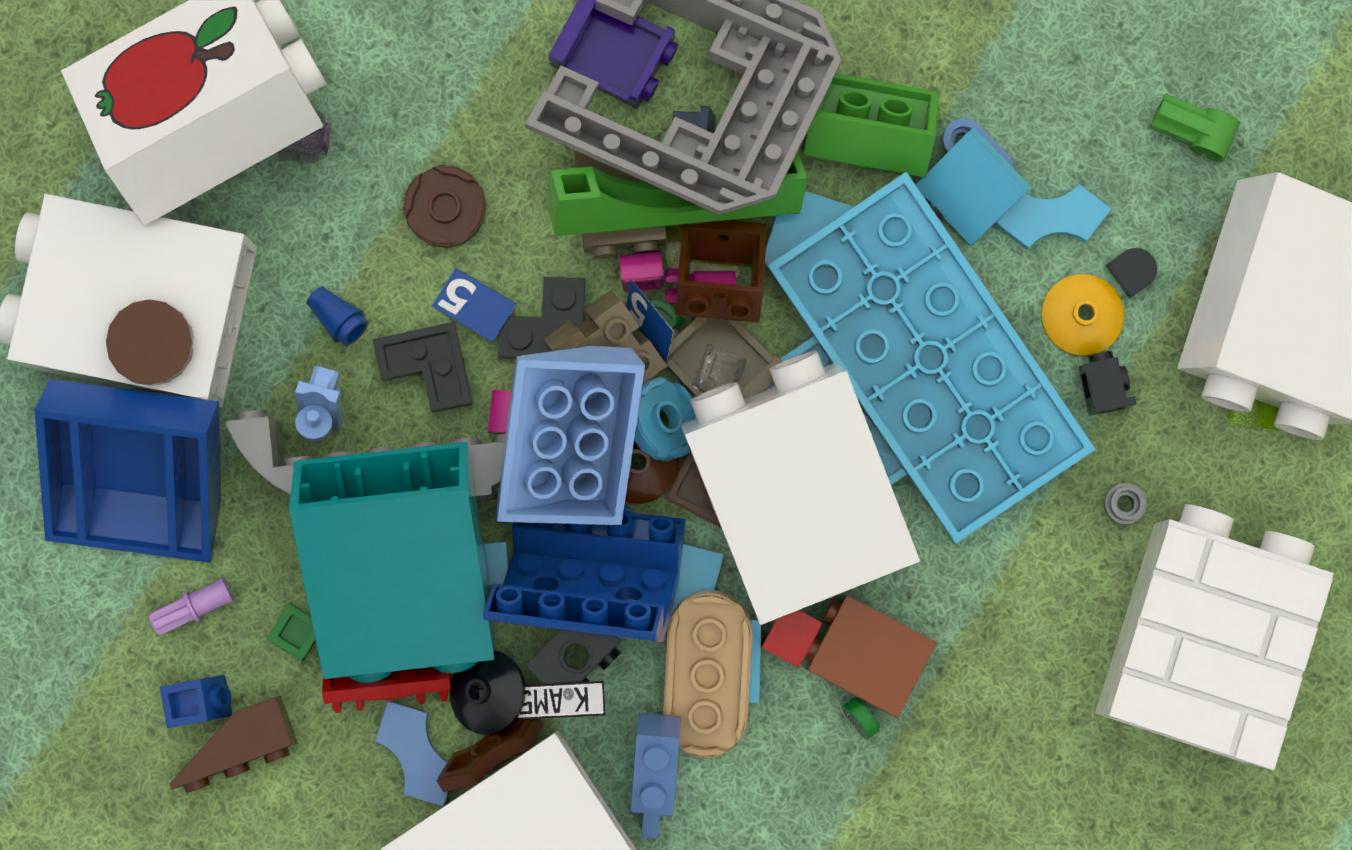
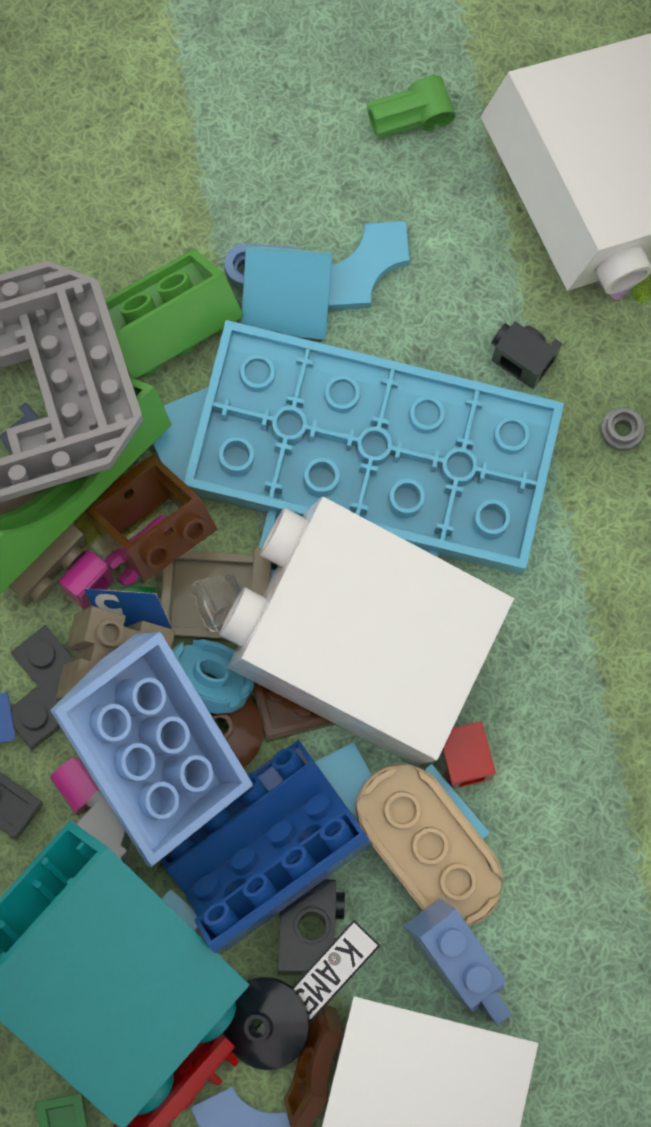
camera: 45 degrees left, 10 degrees down
(861, 718) = (579, 771): green tile -> none
(869, 654) = (540, 714): dark orange panel -> none
(1066, 327) = (453, 336): yellow dish -> none
(1133, 270) = (464, 253): black tile -> none

